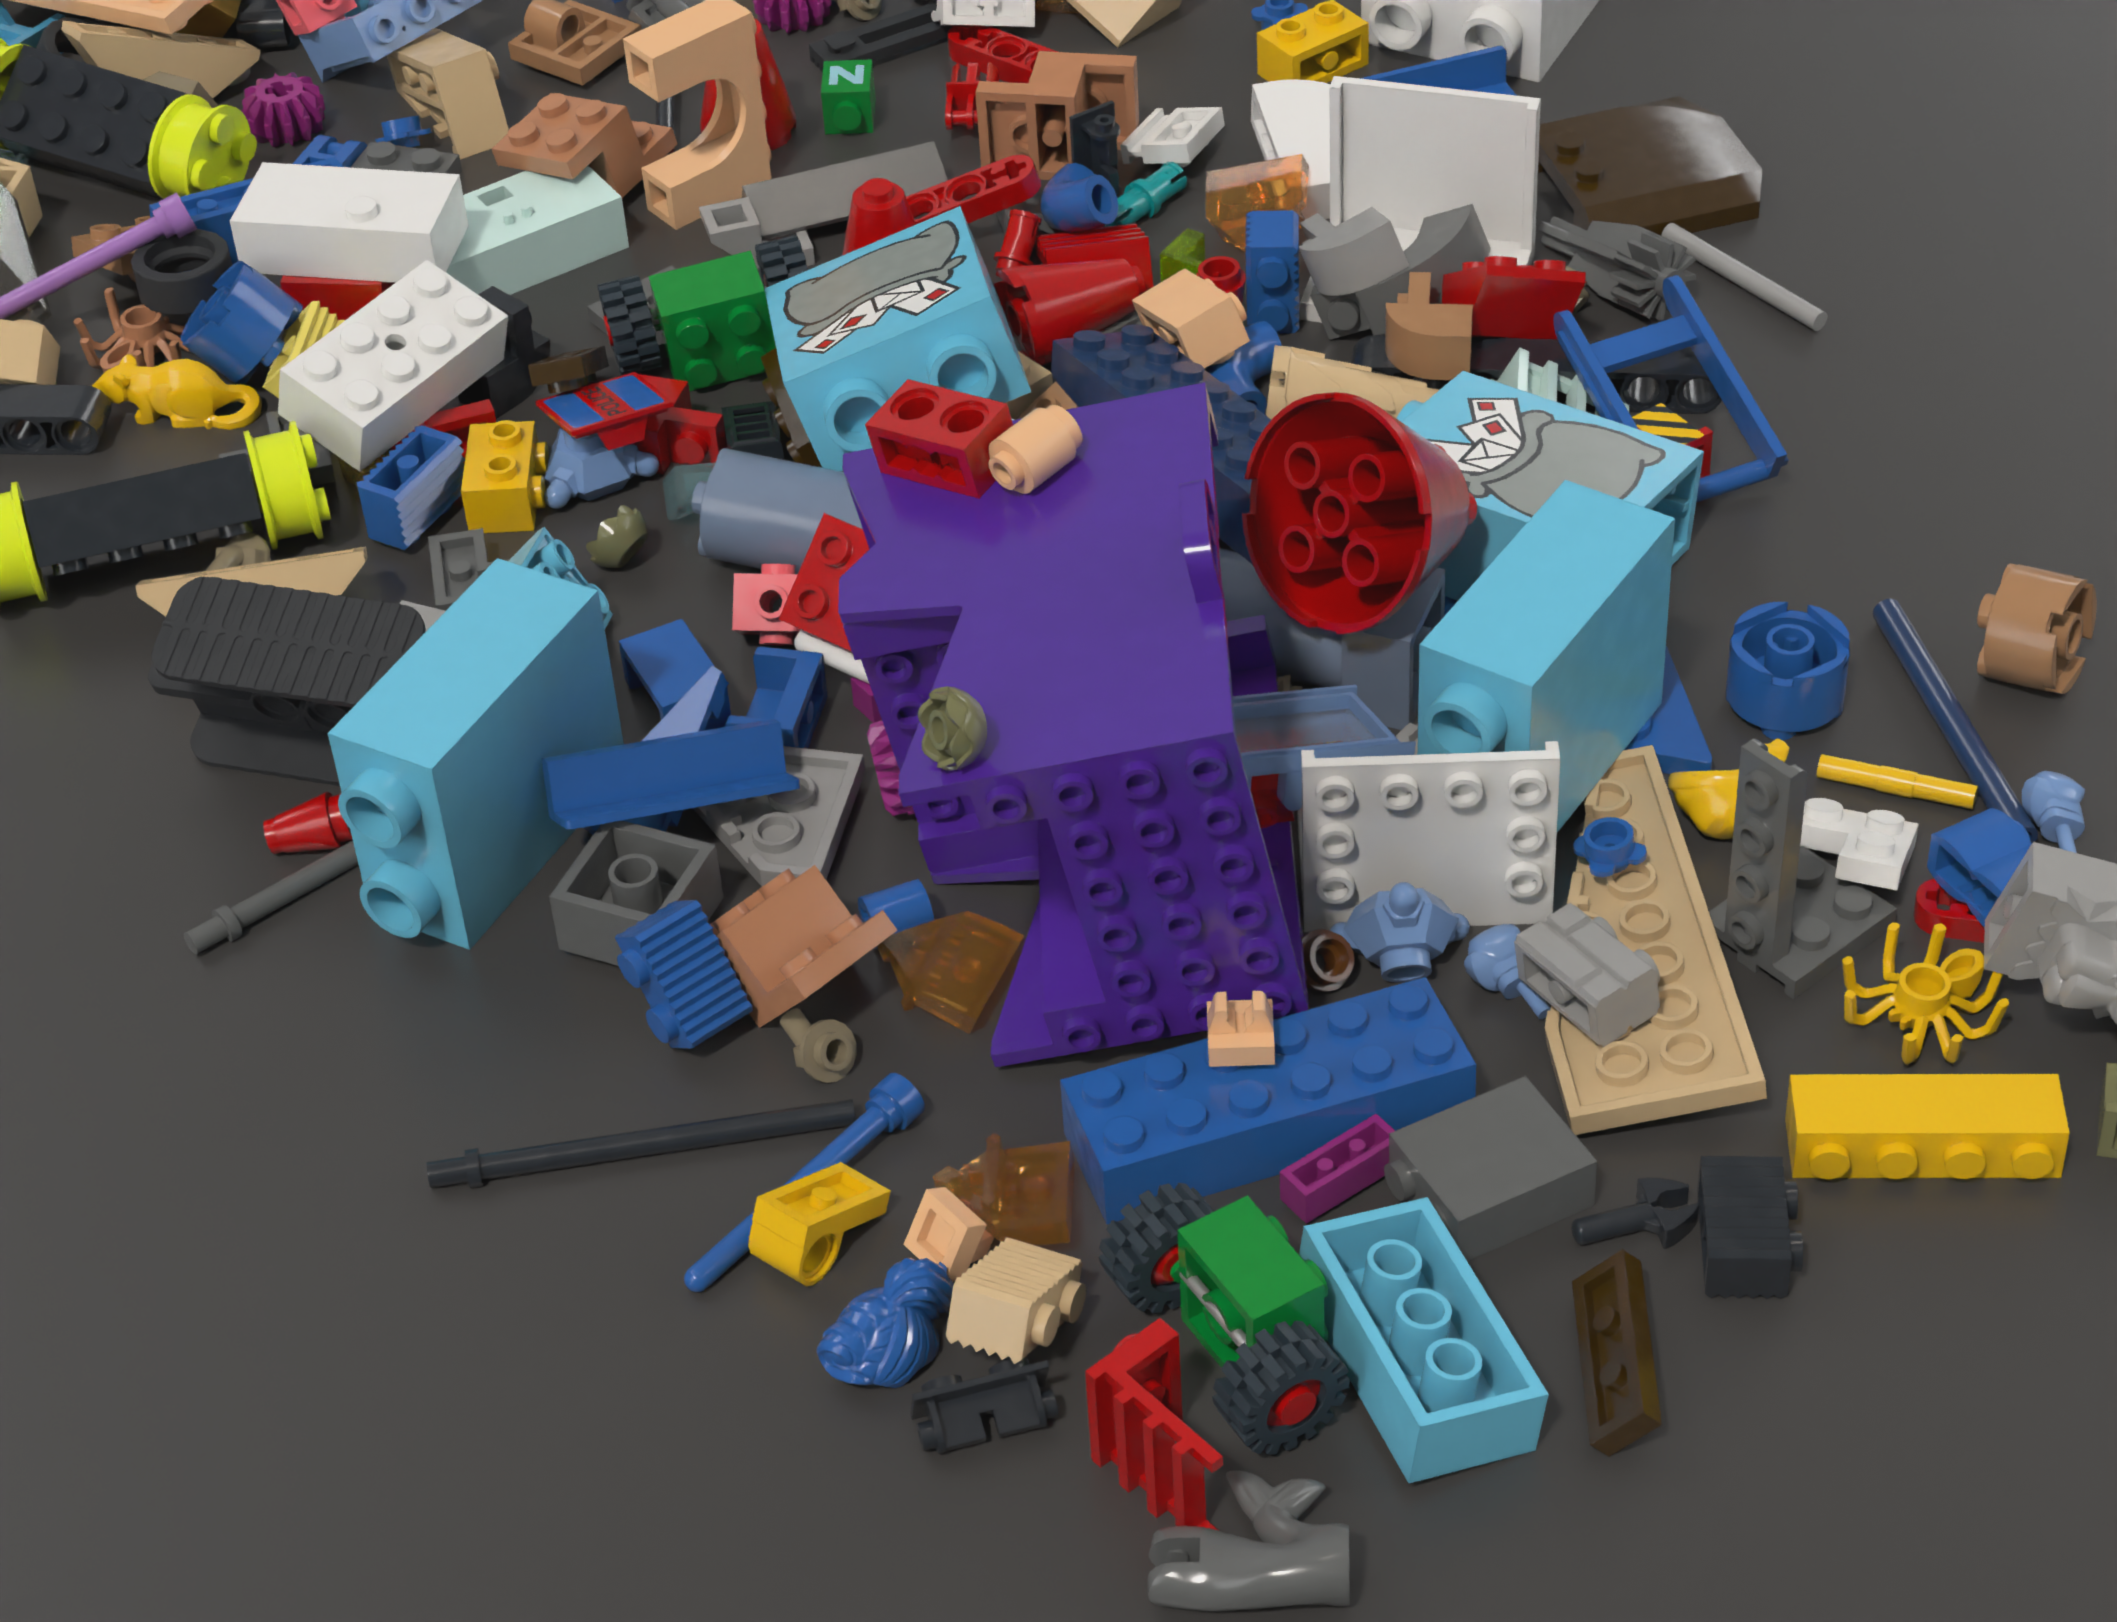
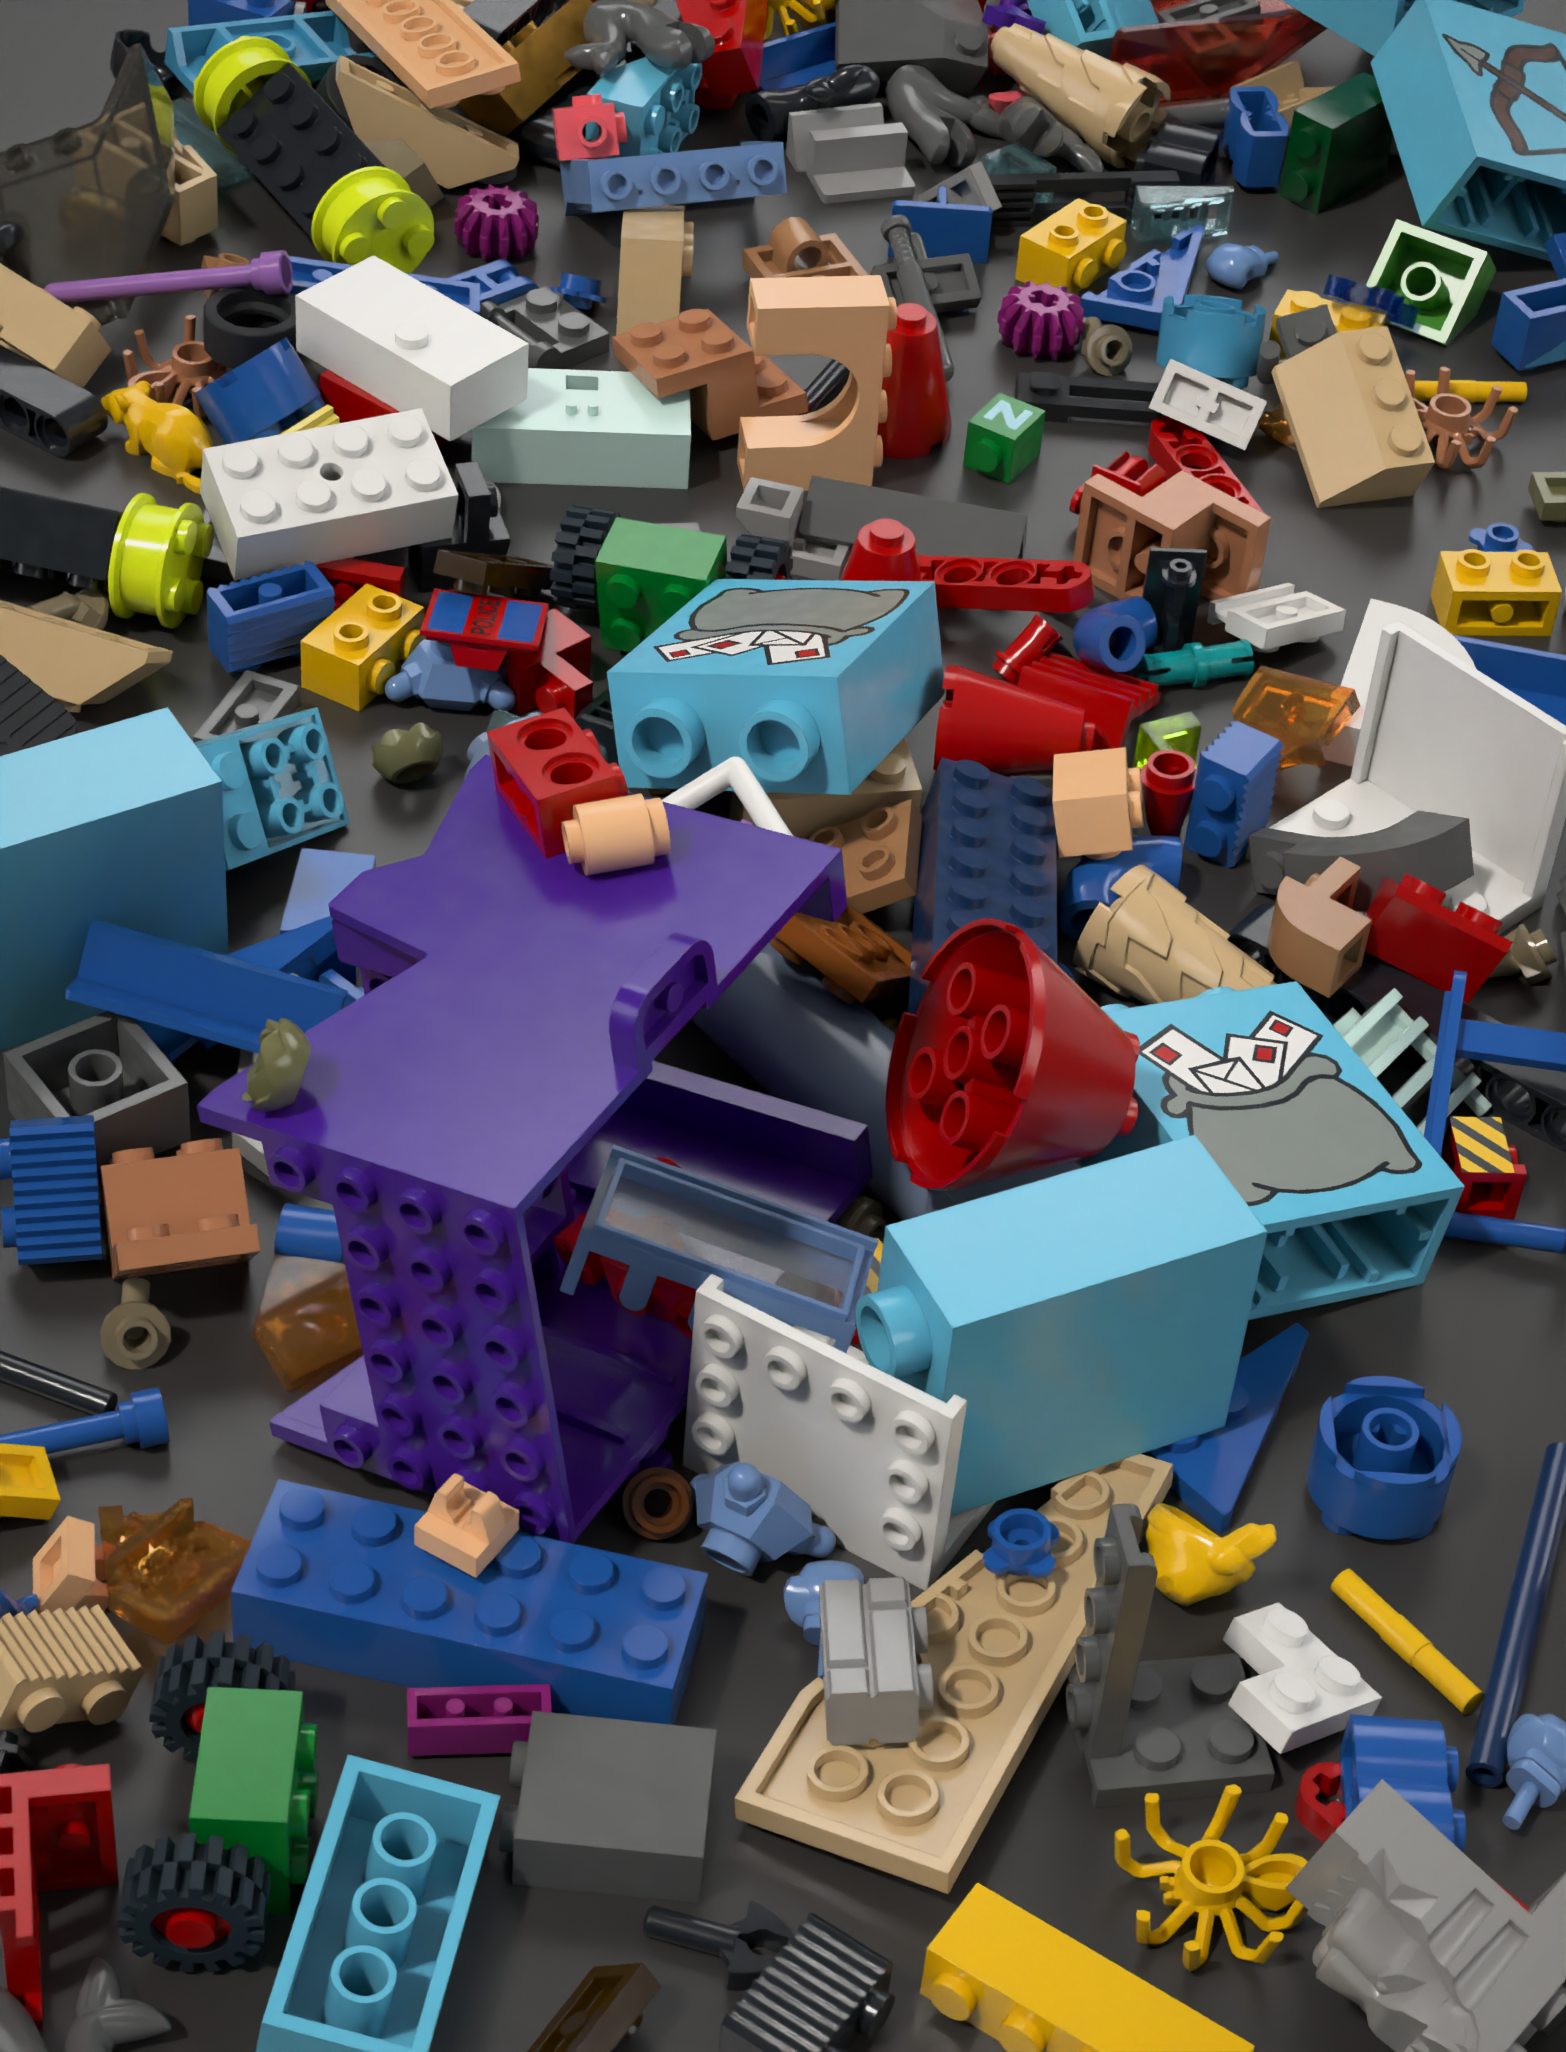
camera: 25 degrees right, 0 degrees up
(1352, 253) = (1303, 810): light grey brick -> none

